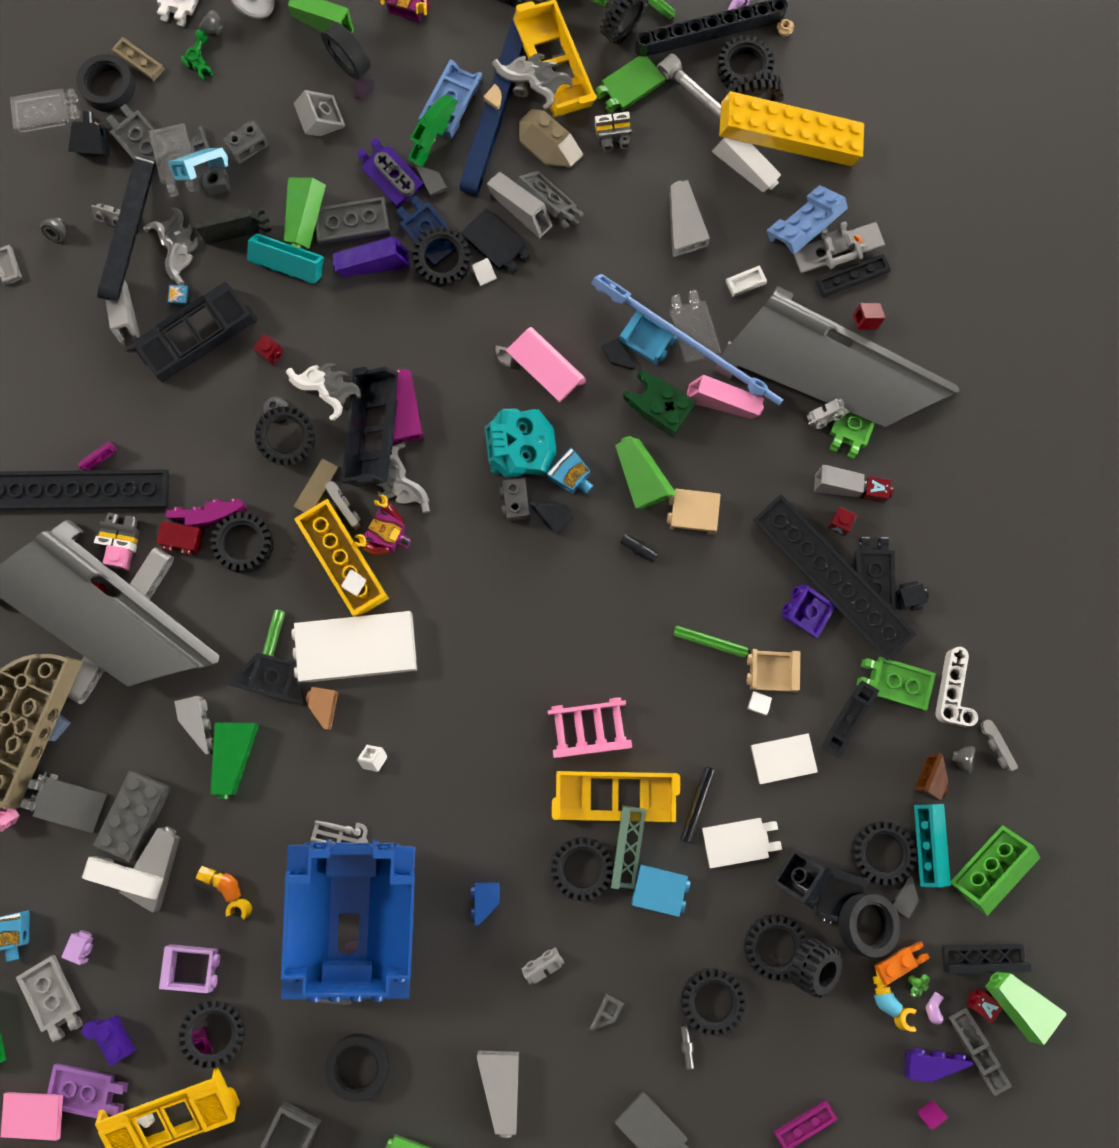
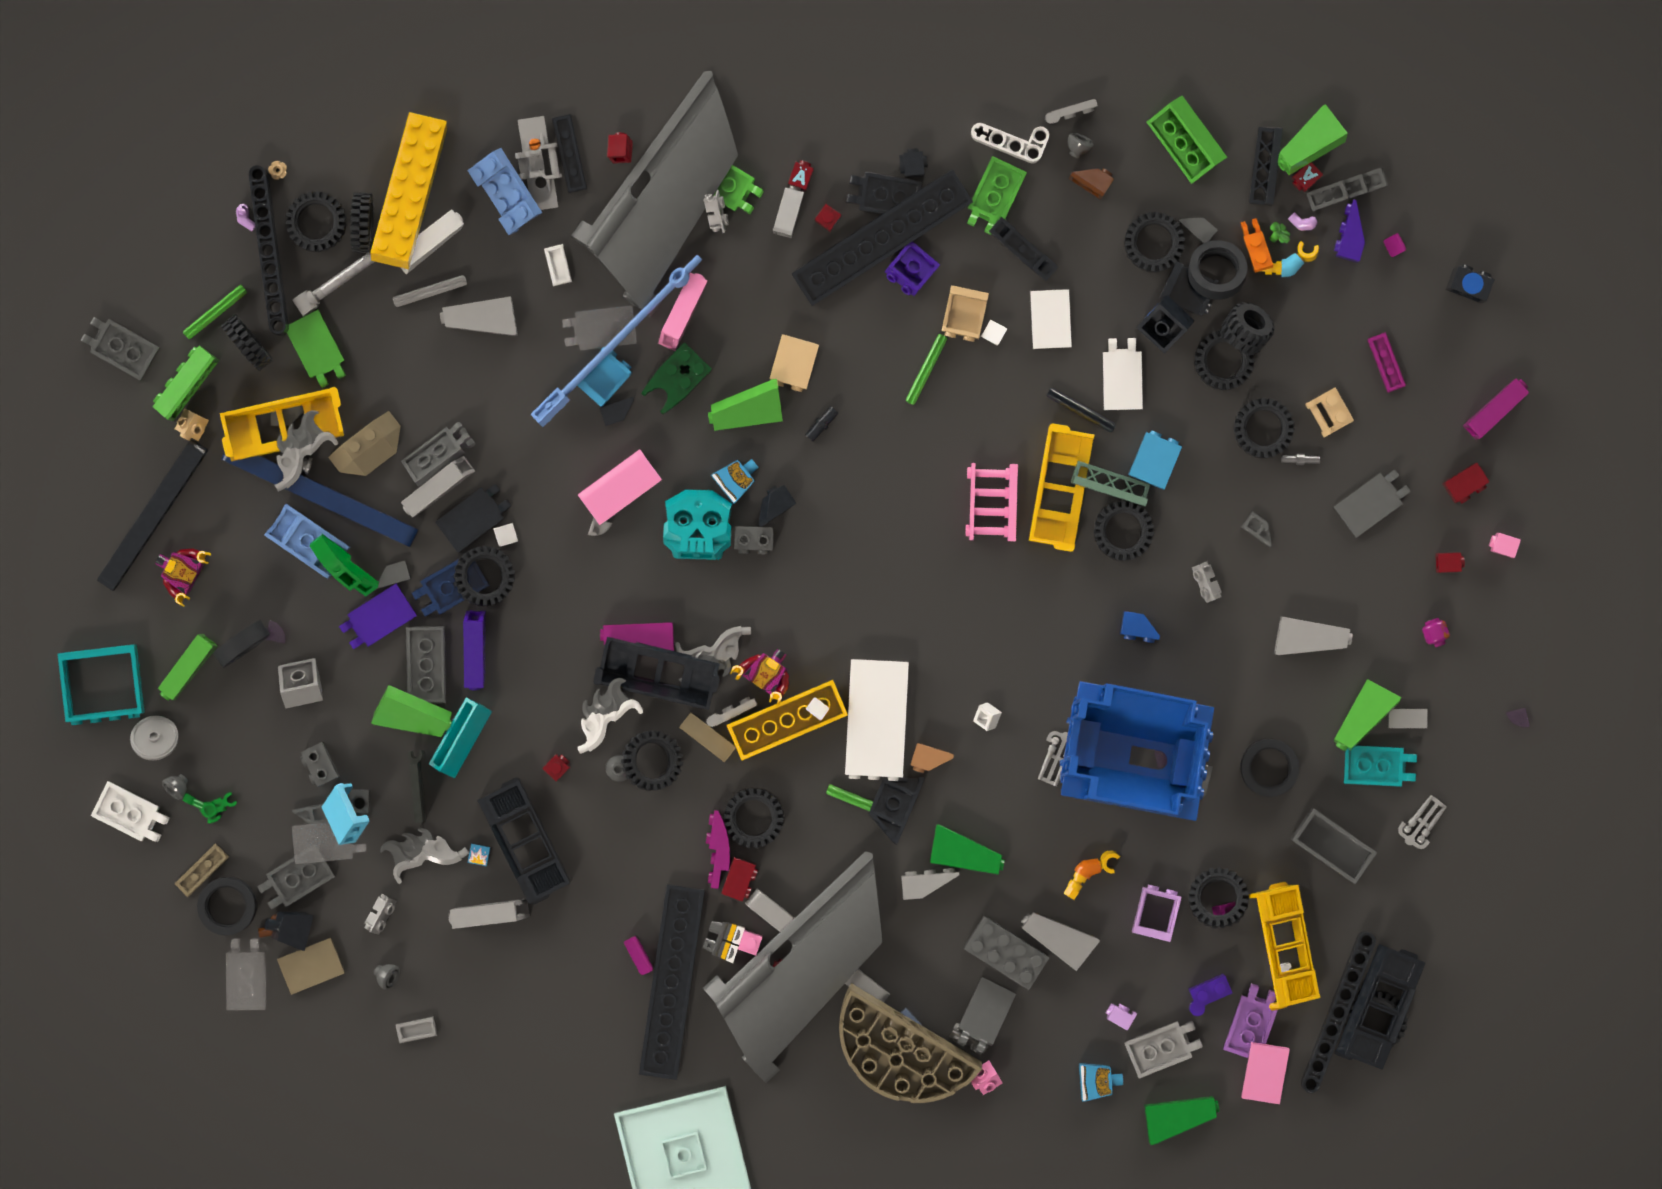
camera: 90 degrees left, 10 degrees up
(58, 164) = (311, 966): none -> dark tan tile
(107, 873) = (1063, 964): white beam -> none
(126, 229) = (405, 895): black beam -> none
(393, 166) = (393, 600): dark grey beam -> none
(493, 97) = (316, 495): tan tile -> none
(621, 132) = (370, 383): dark grey hips -> none
(700, 172) = (429, 291): none -> light grey axle
(745, 1077) = (1335, 409): none -> tan plate
(932, 845) = (1154, 195): teal brick -> none

